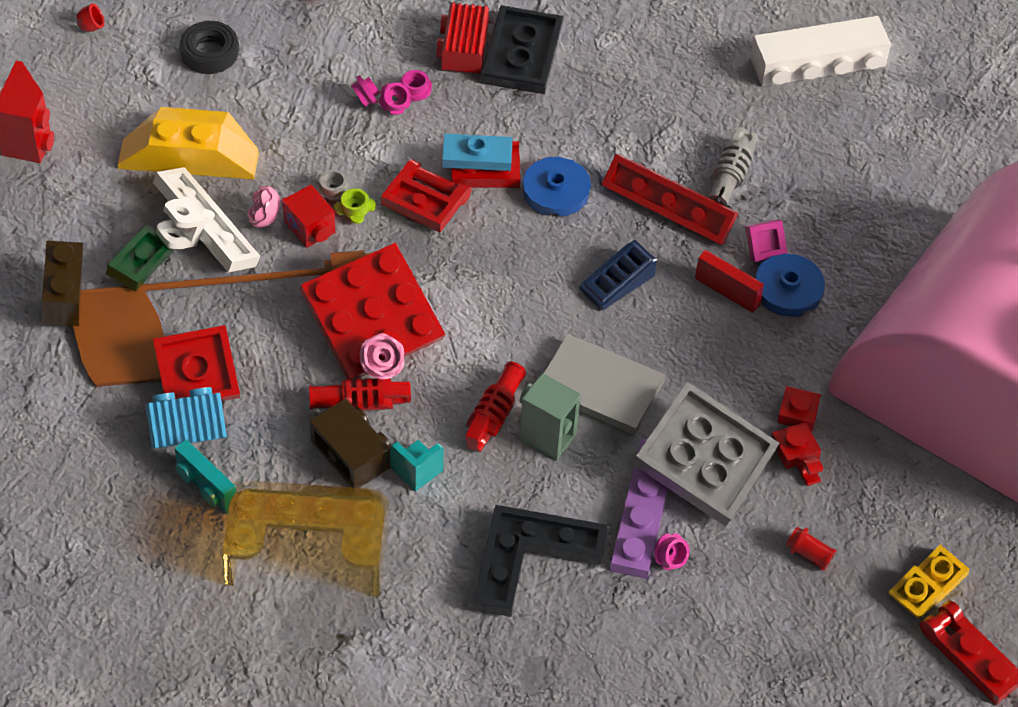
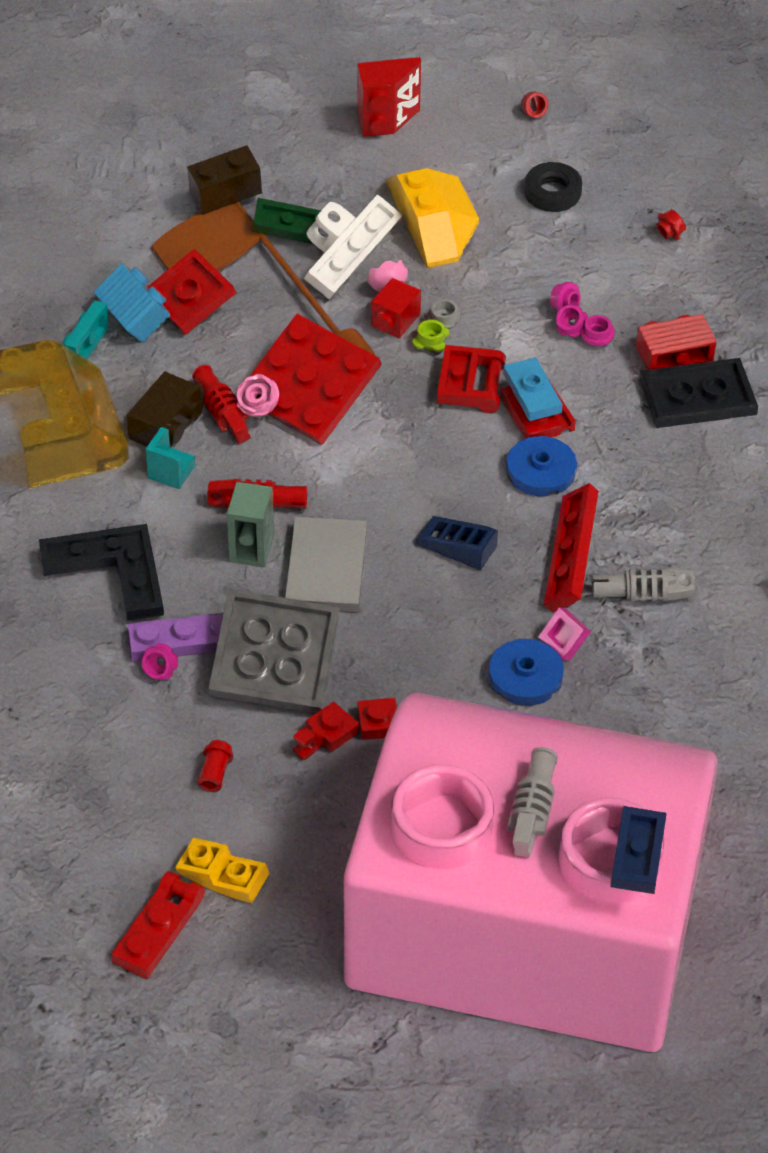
camera: 70 degrees right, 5 degrees down
(729, 281) = (496, 618): red tile -> none

